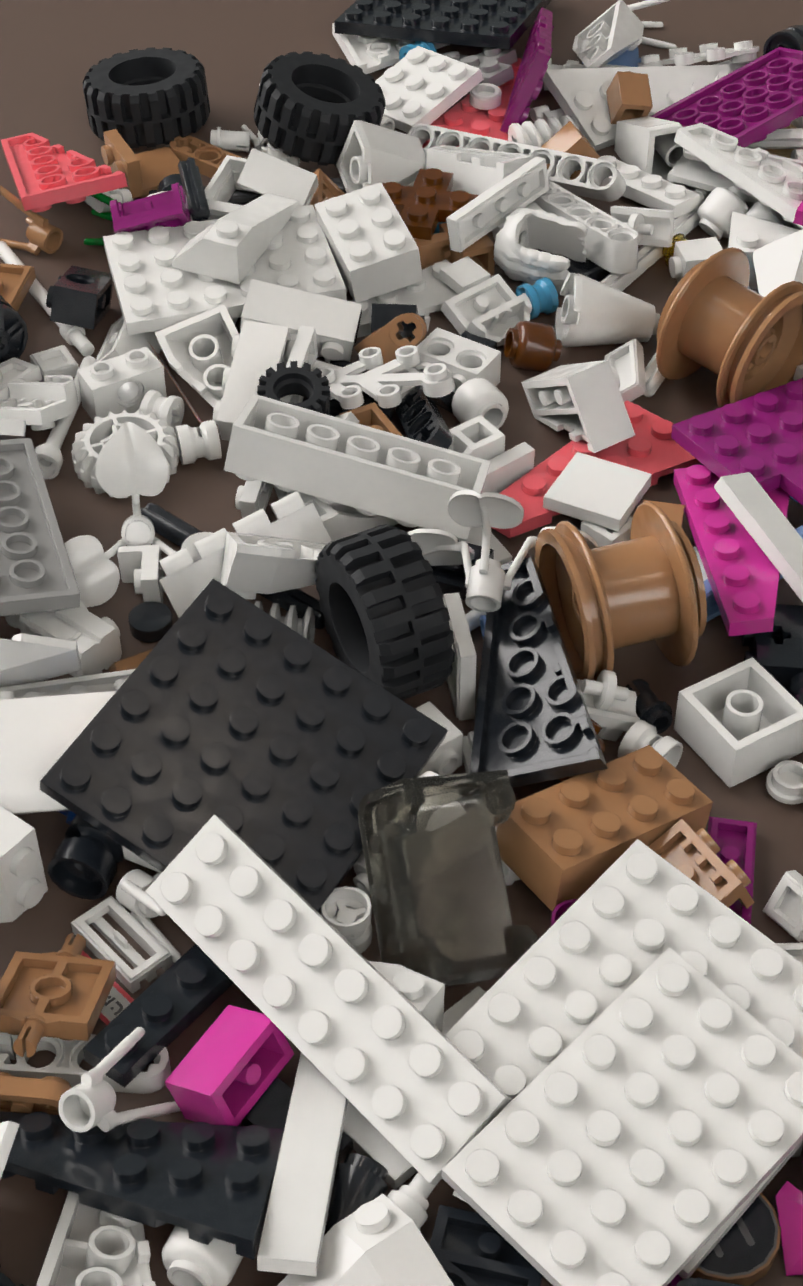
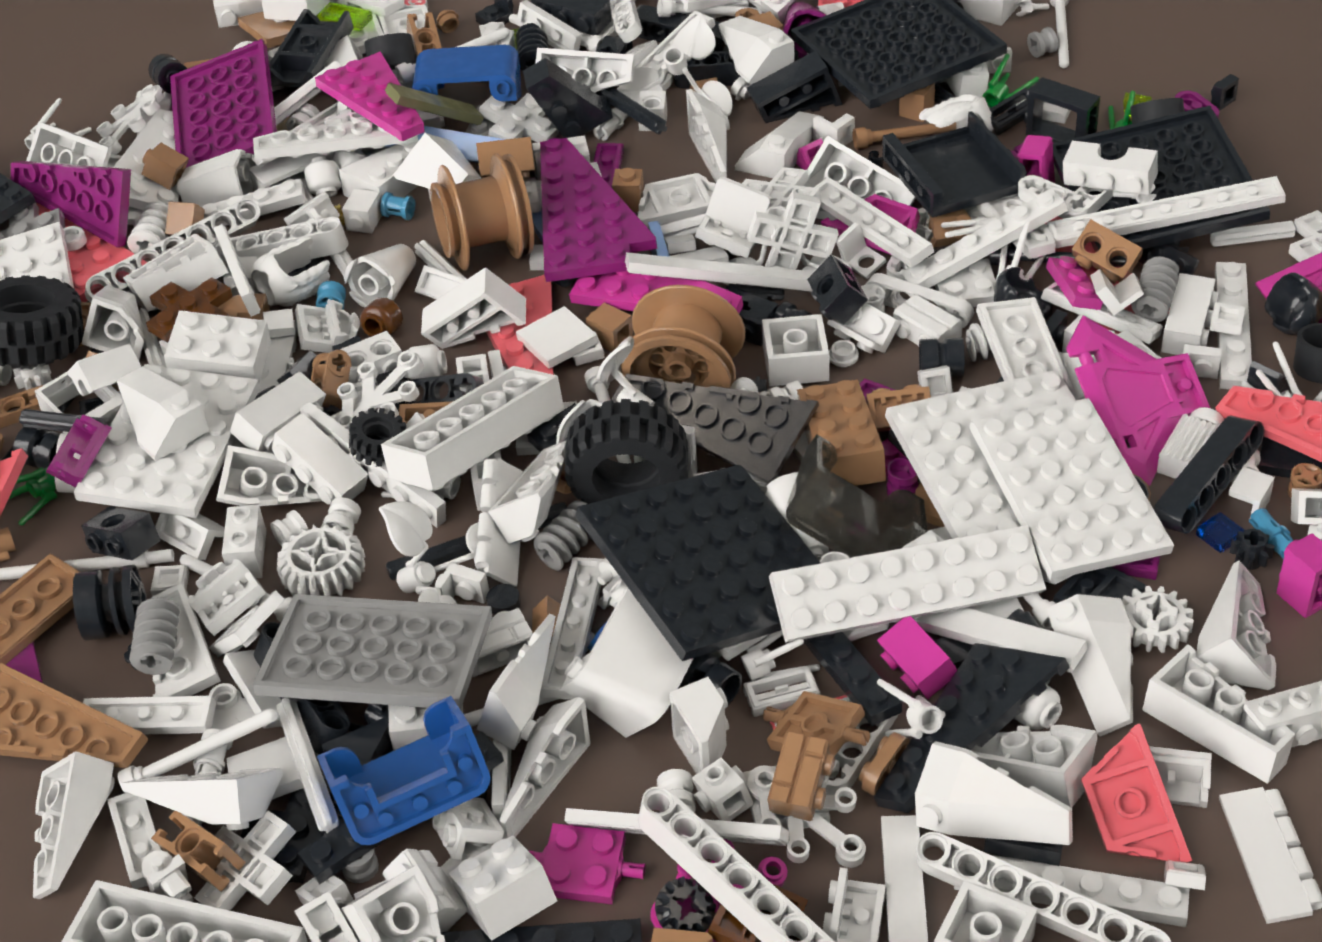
camera: 60 degrees left, 0 degrees up
(177, 385) = (274, 514): sticker -> none

